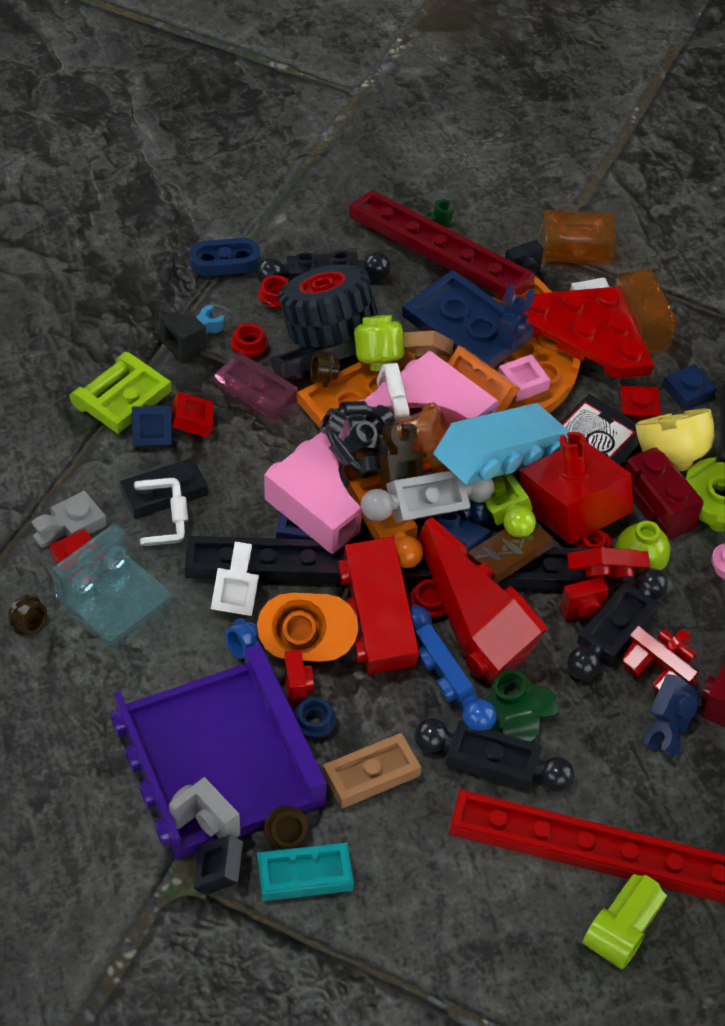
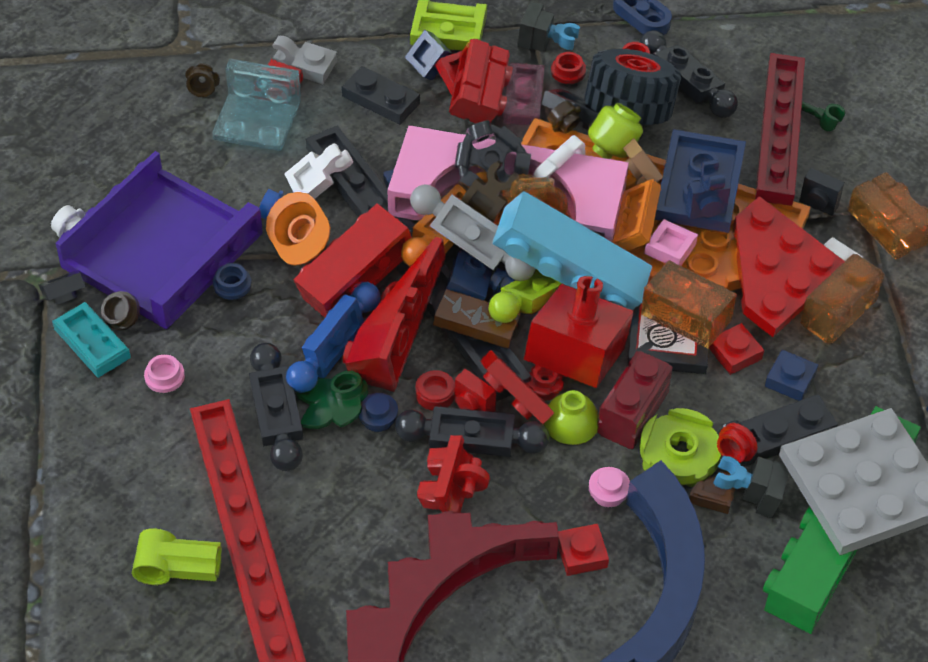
camera: 60 degrees right, 0 degrees up
(132, 821) = (66, 219): none -> white plate
(178, 510) = (359, 109): white piece -> none
(208, 806) = (94, 251): light grey bracket -> none
(228, 404) = (480, 82): none -> red brick
(297, 678) = (255, 250): red plate -> none
(371, 770) = (207, 336): medium nougat plate -> none
(391, 829) = (164, 374): none -> bright pink plate
(551, 676) = (378, 412): none -> dark blue plate
(557, 630) = (435, 389): none -> red tile
(595, 401) = (688, 304): none -> clear orange brick
(673, 711) = (403, 500): dark blue plate -> none
(678, 436) = (703, 380): light yellow cylinder -> none

